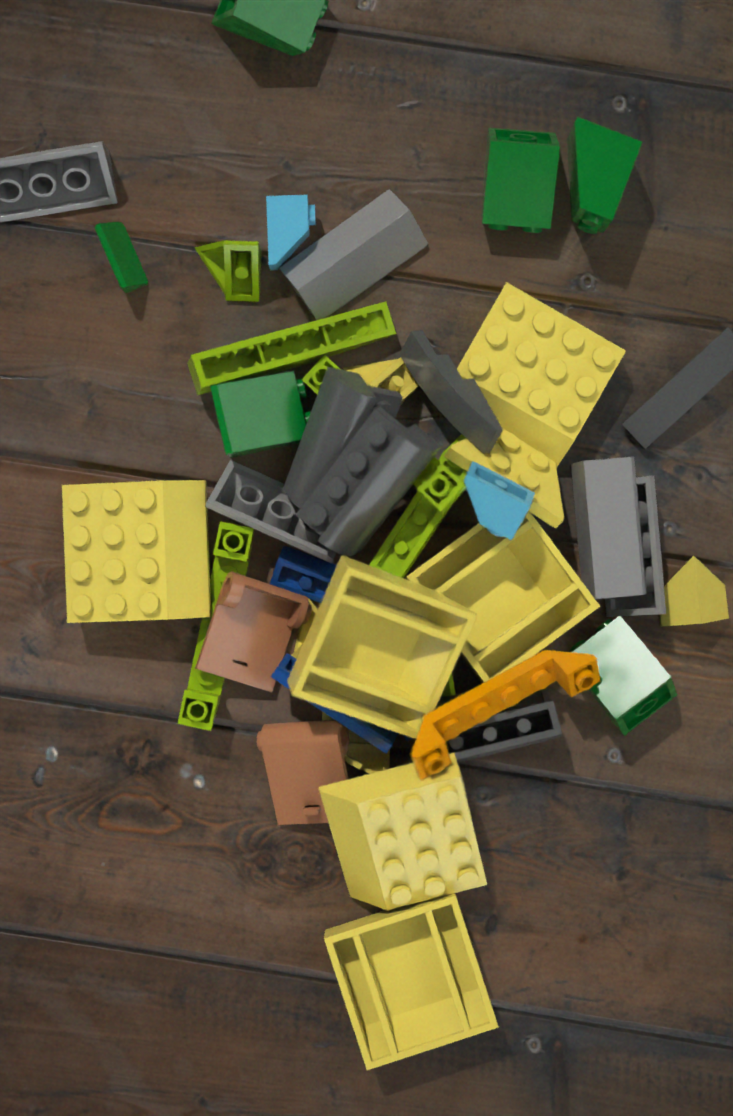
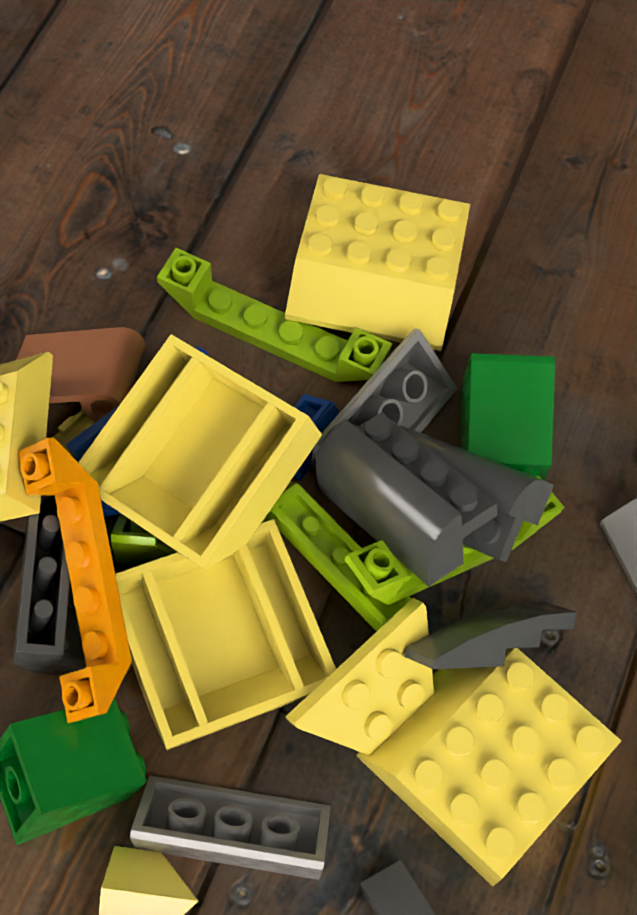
camera: 100 degrees right, 25 degrees down
(251, 627) = (262, 343): nougat door -> none
(290, 347) = (580, 478): lime slope -> none
(387, 375) = (515, 580): light yellow slope -> none
(497, 500) = (343, 639): medium azure slope -> none
(608, 527) = (265, 798): light grey slope -> none

